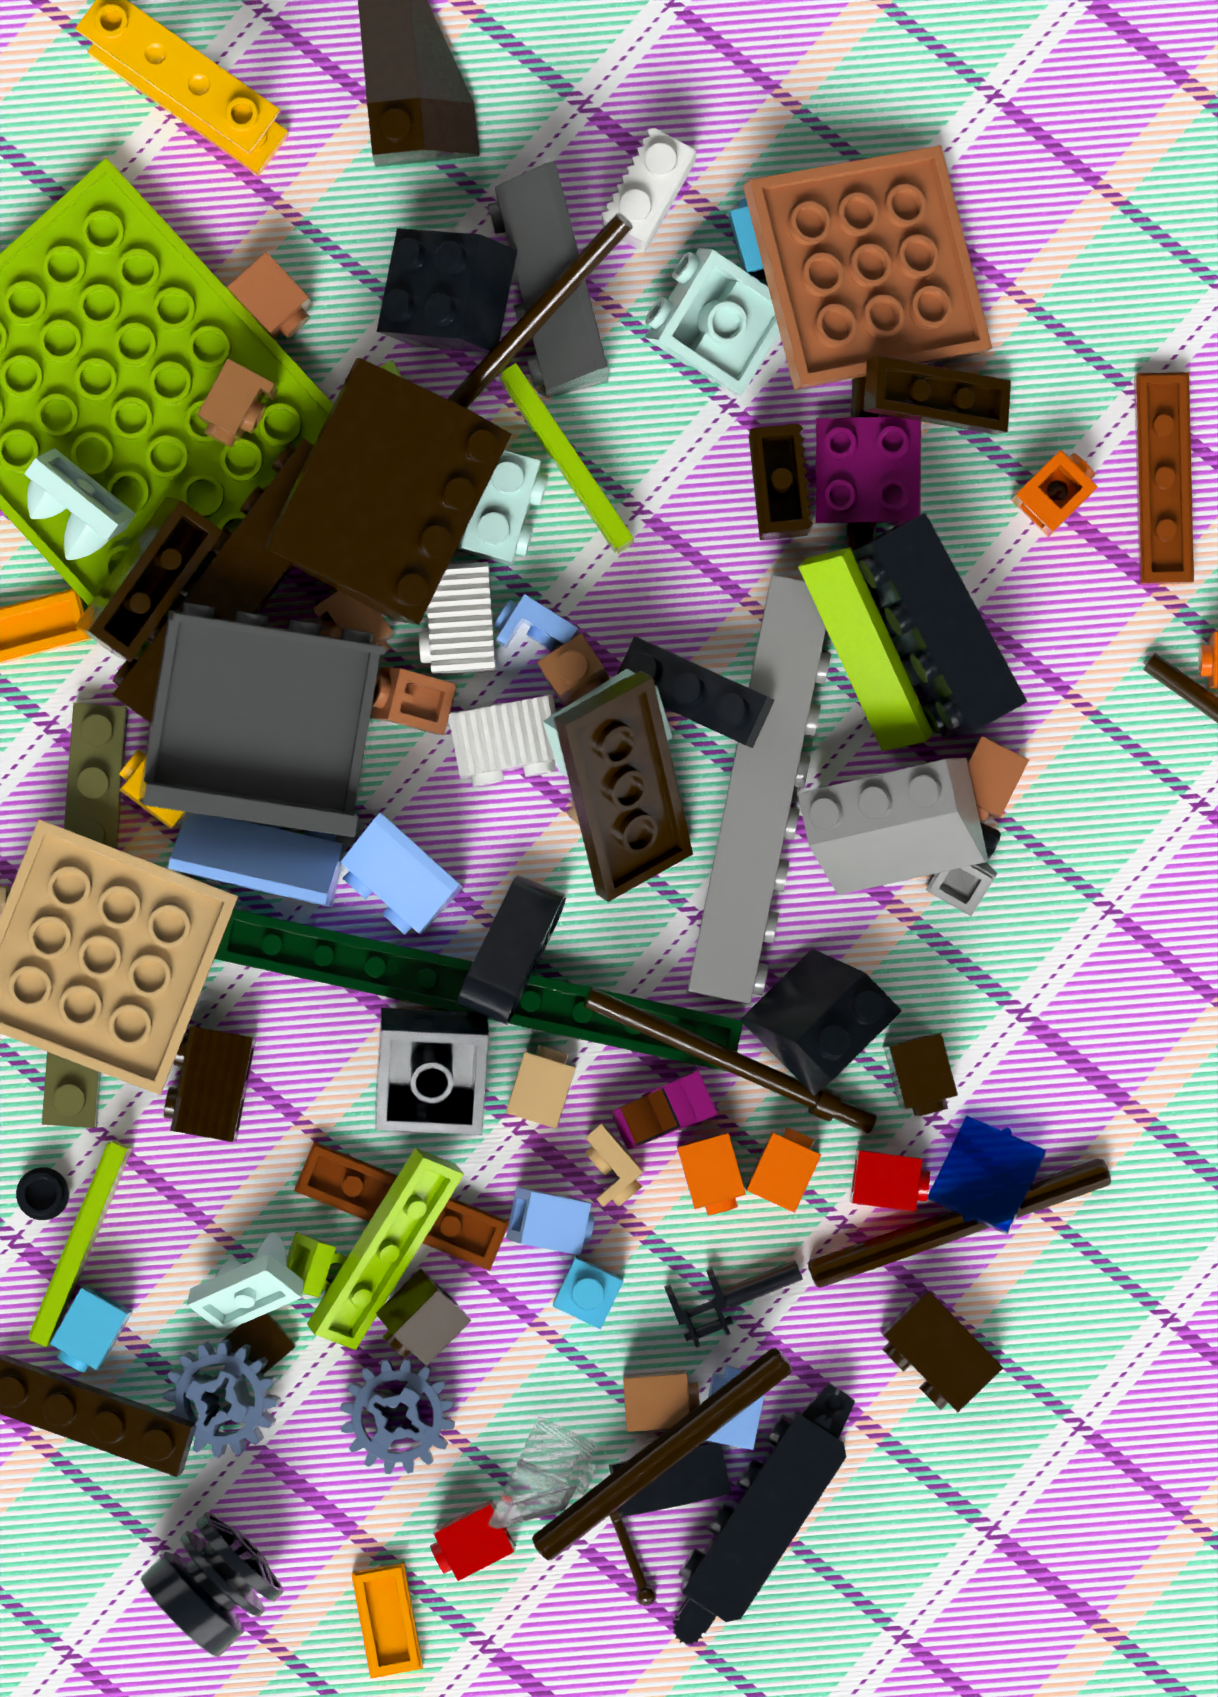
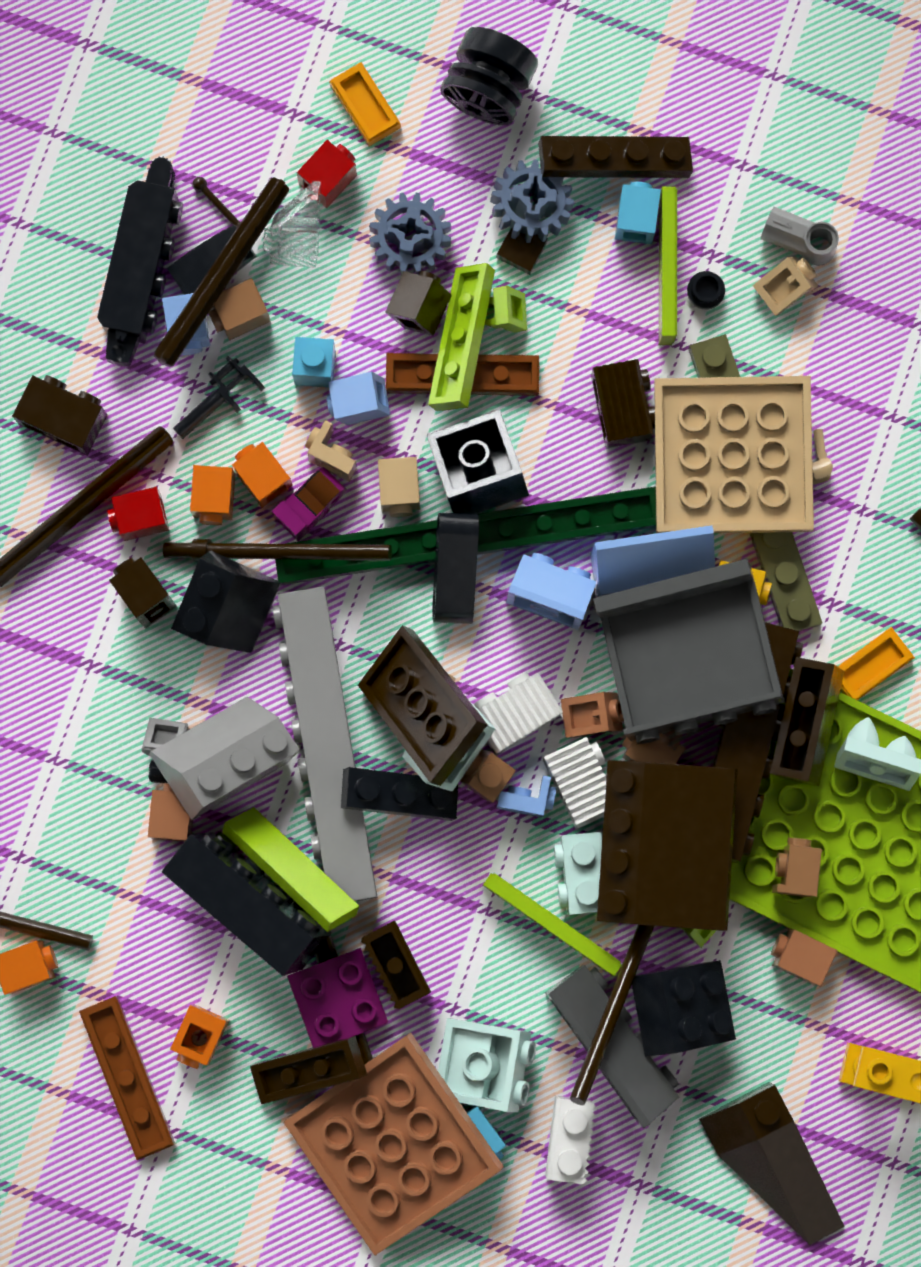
camera: 150 degrees right, 5 degrees down
(249, 1289) = (543, 273): light aqua tile -> none
(987, 1174) = (72, 544): clear blue piece -> none

